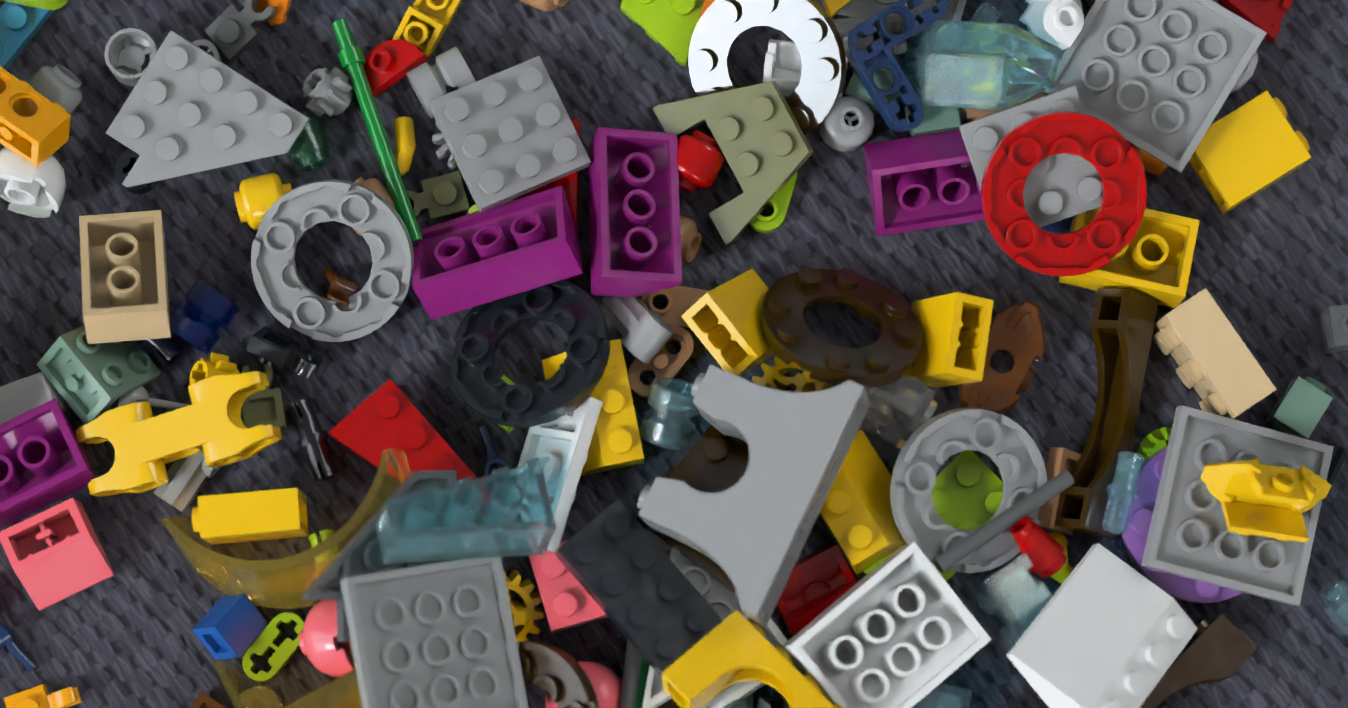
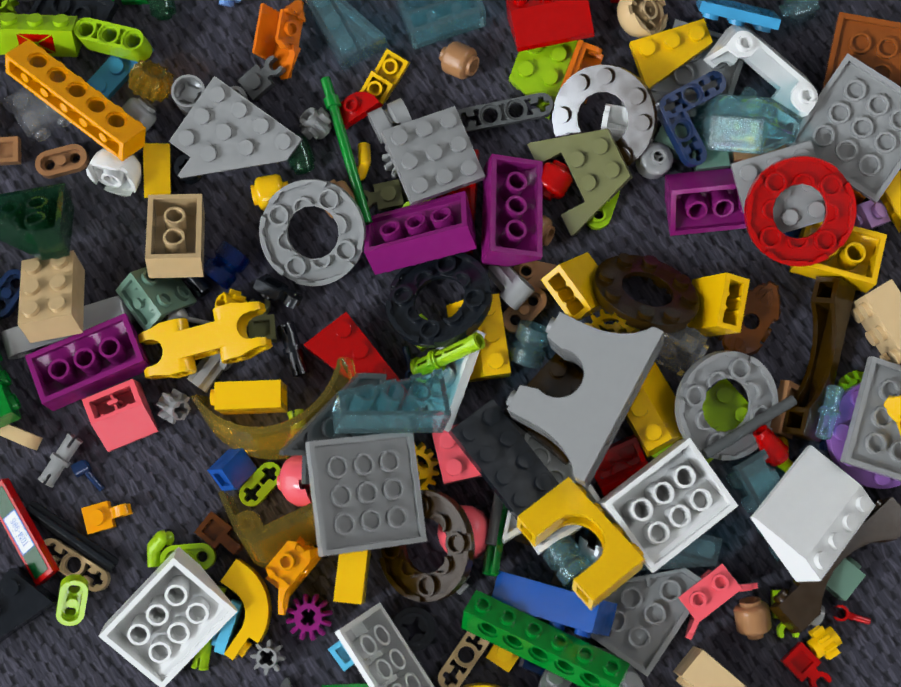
camera: 10 degrees right, 0 degrees up
(71, 39) = (150, 81): none -> clear yellow gear
(88, 175) = (157, 169): none -> yellow slope
(135, 536) = (173, 406): none -> light grey gear
(340, 288) = (316, 251): reddish brown hand -> none
(536, 442) = (441, 358): none -> lime pin
(615, 66) = (504, 117): none -> dark grey beam
(1175, 191) = (871, 215): none -> lavender bracket

